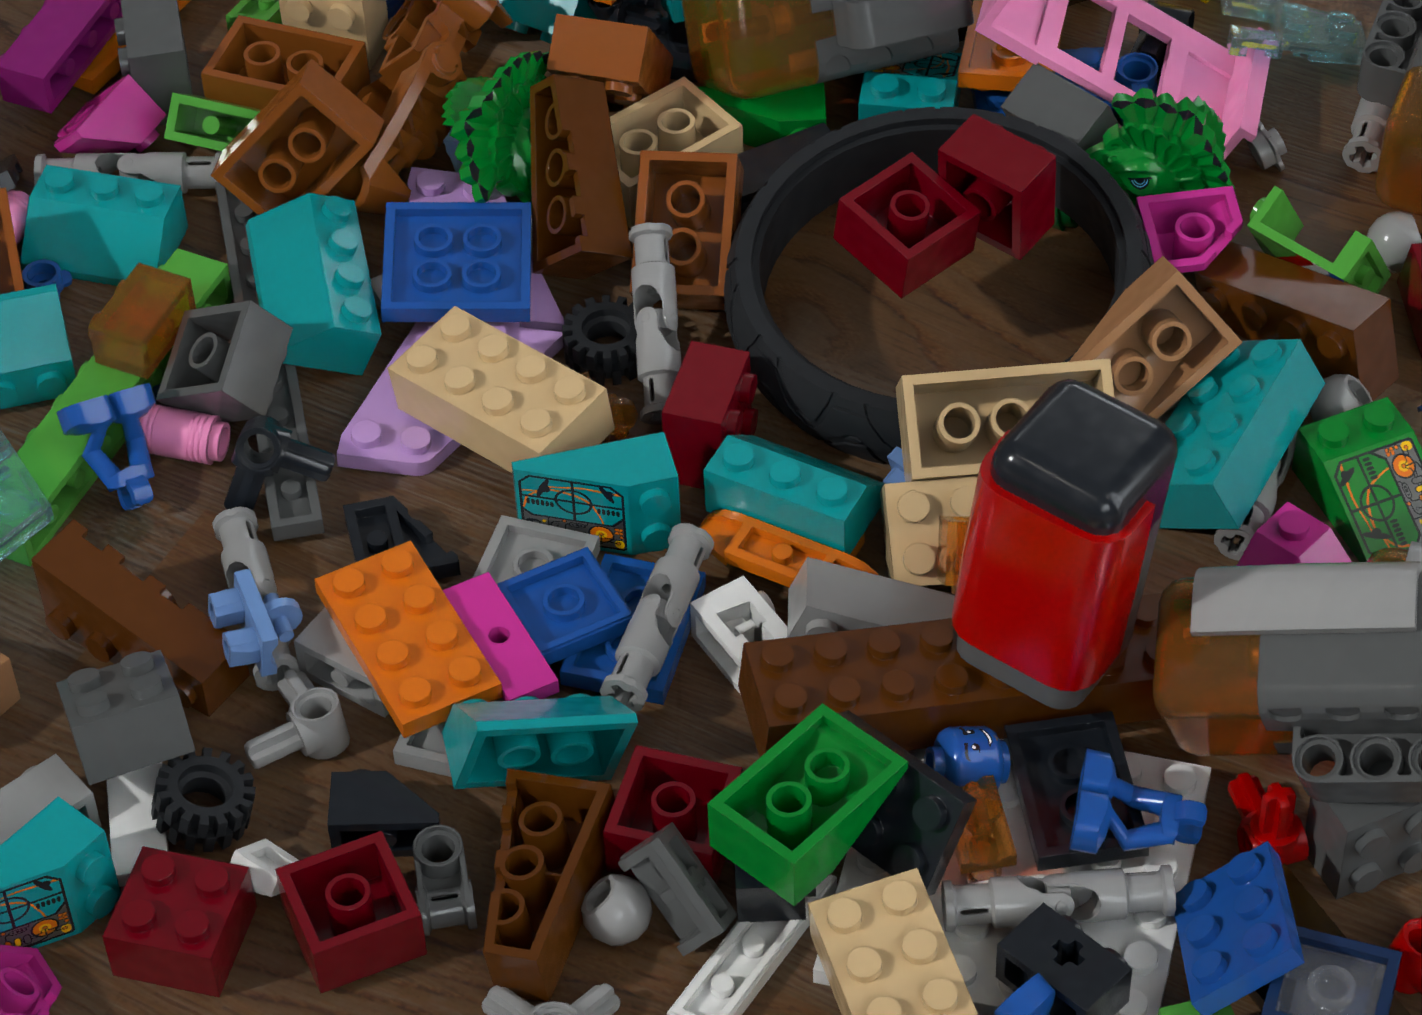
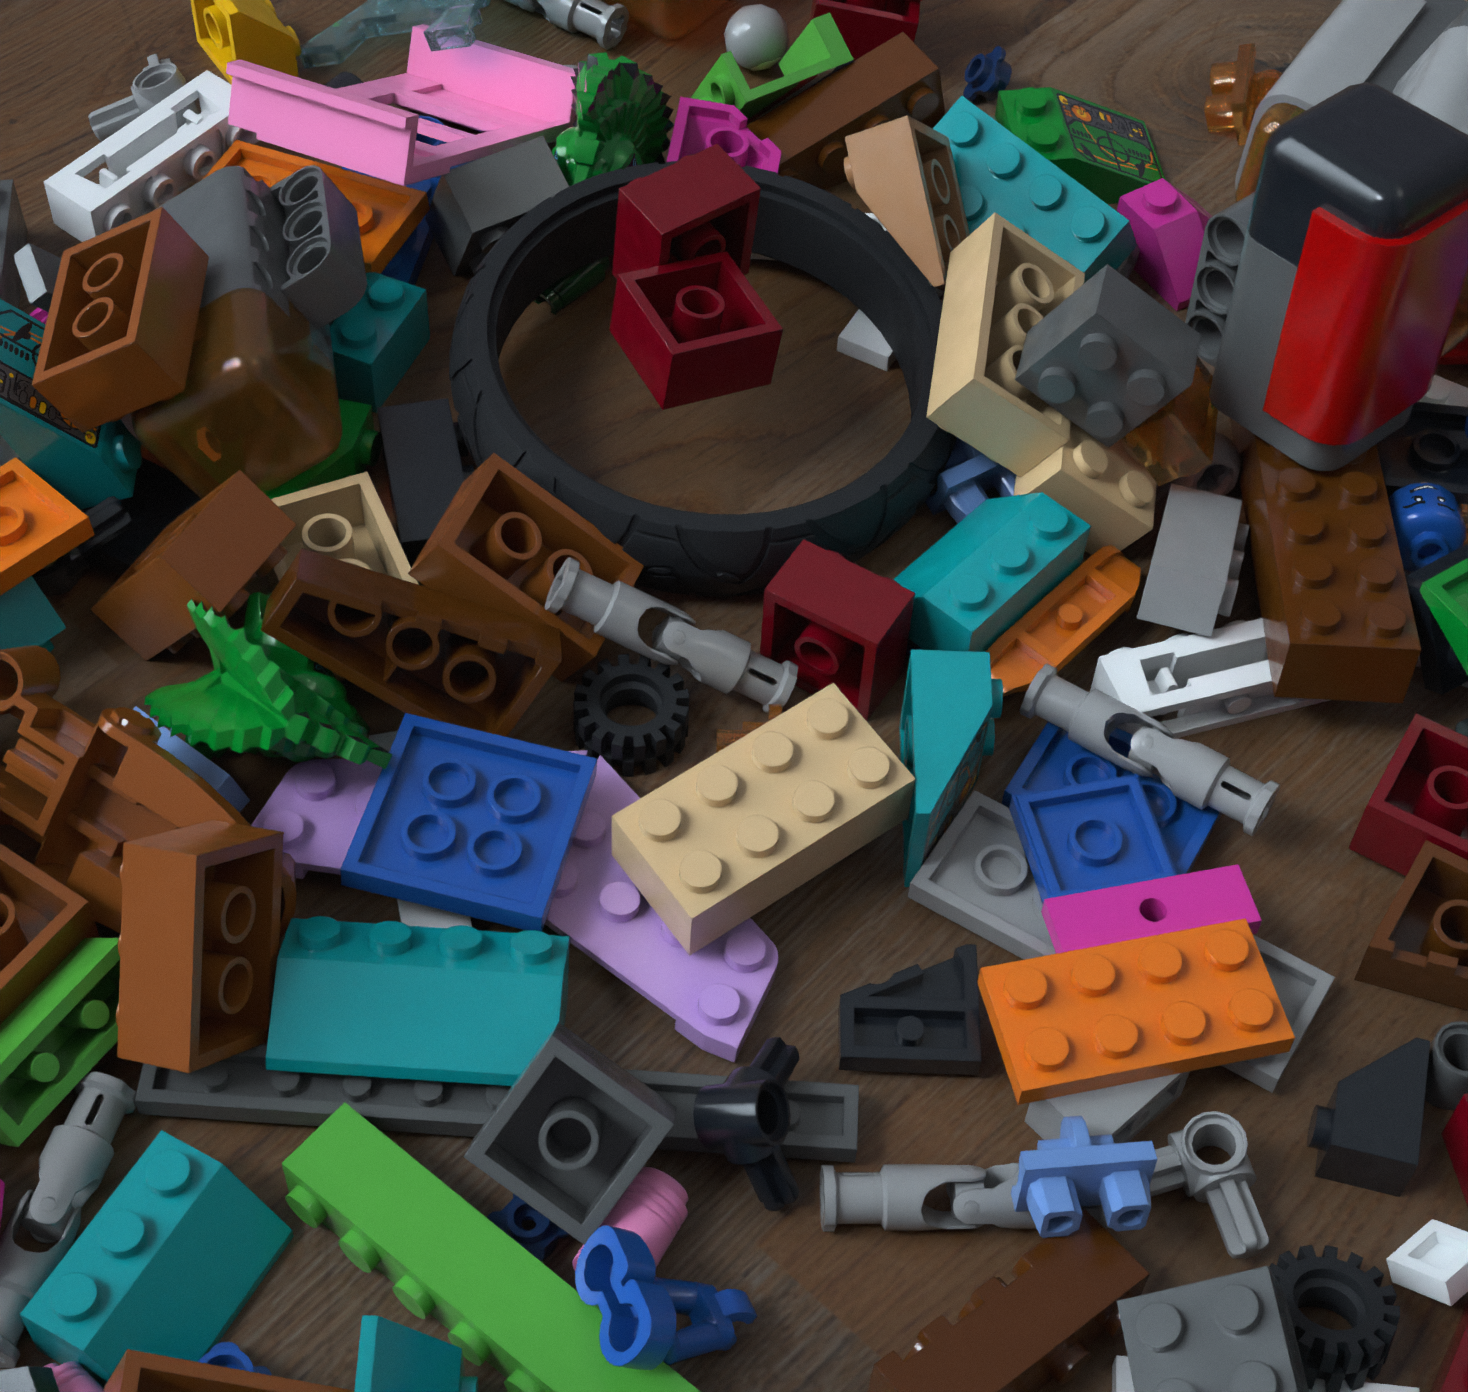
camera: 80 degrees left, 5 degrees up
(141, 320) = (453, 1221): clear orange brick -> none
(553, 736) = (1329, 901): teal slope -> none
(960, 435) = (1108, 356): none -> dark grey brick

